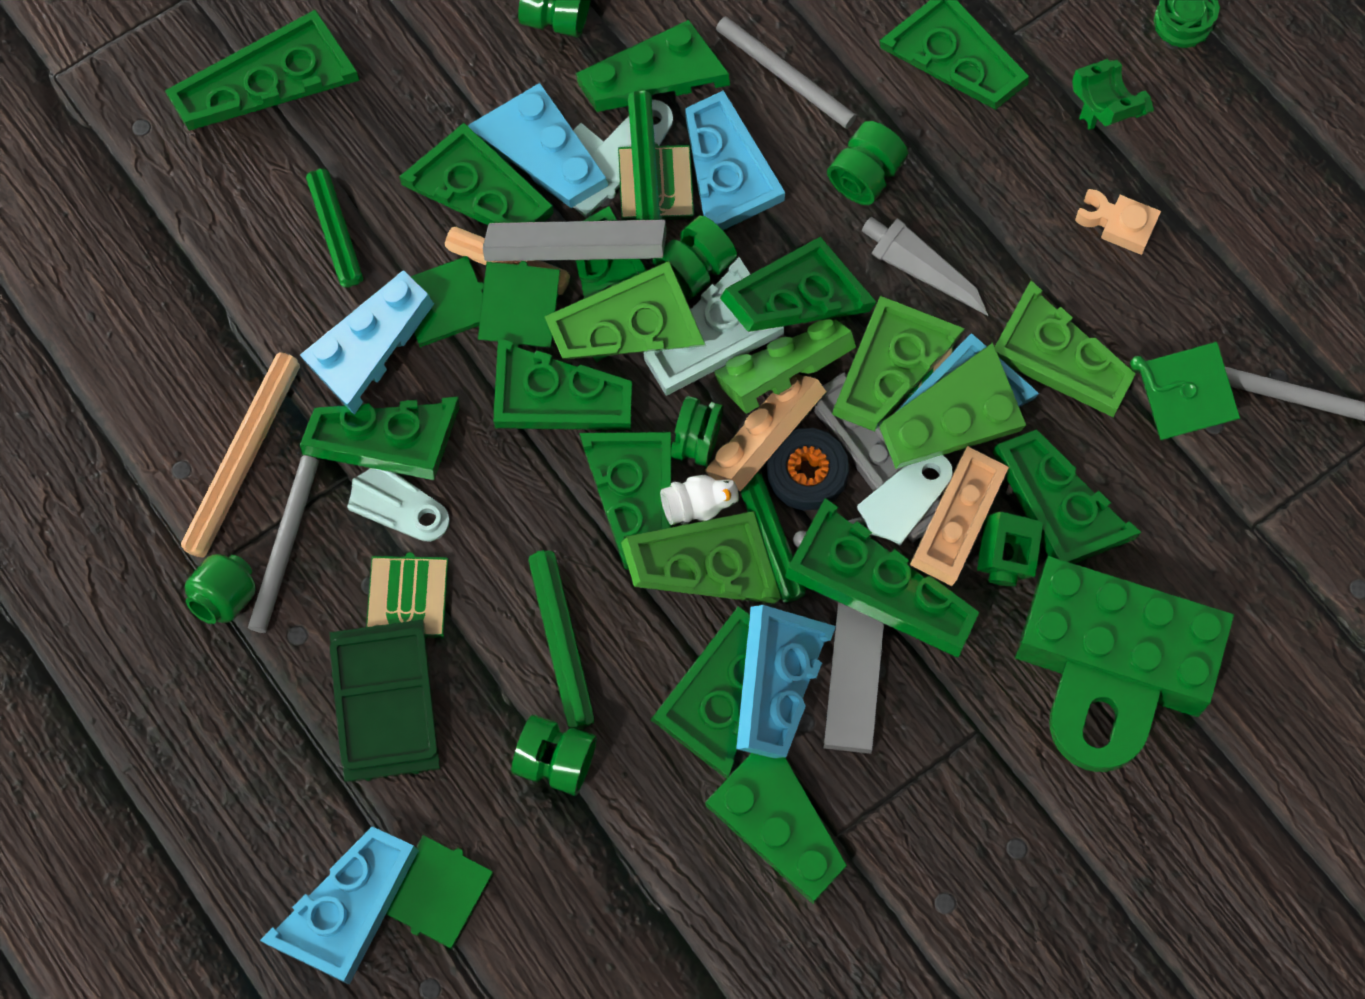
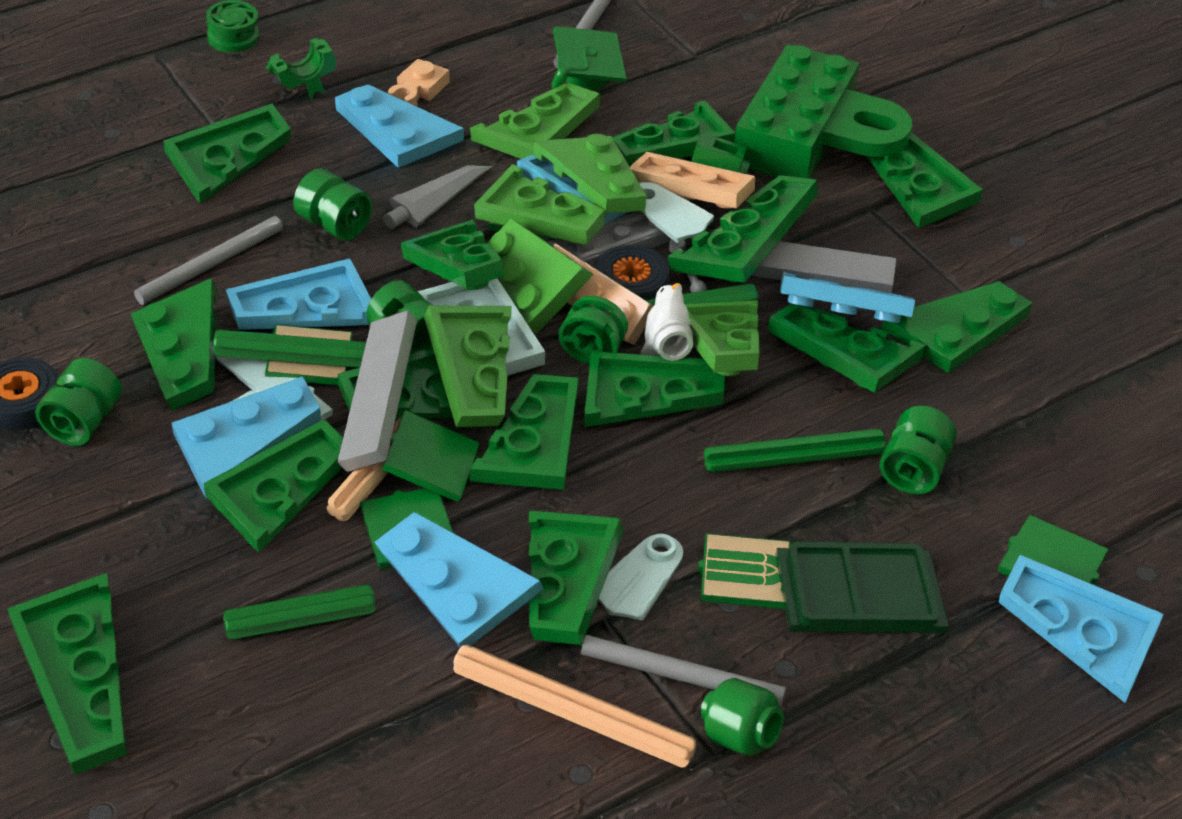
camera: 90 degrees left, 25 degrees down
(1027, 786) = (925, 182): none -> green wing
(1037, 207) = (395, 126): none -> medium azure wing

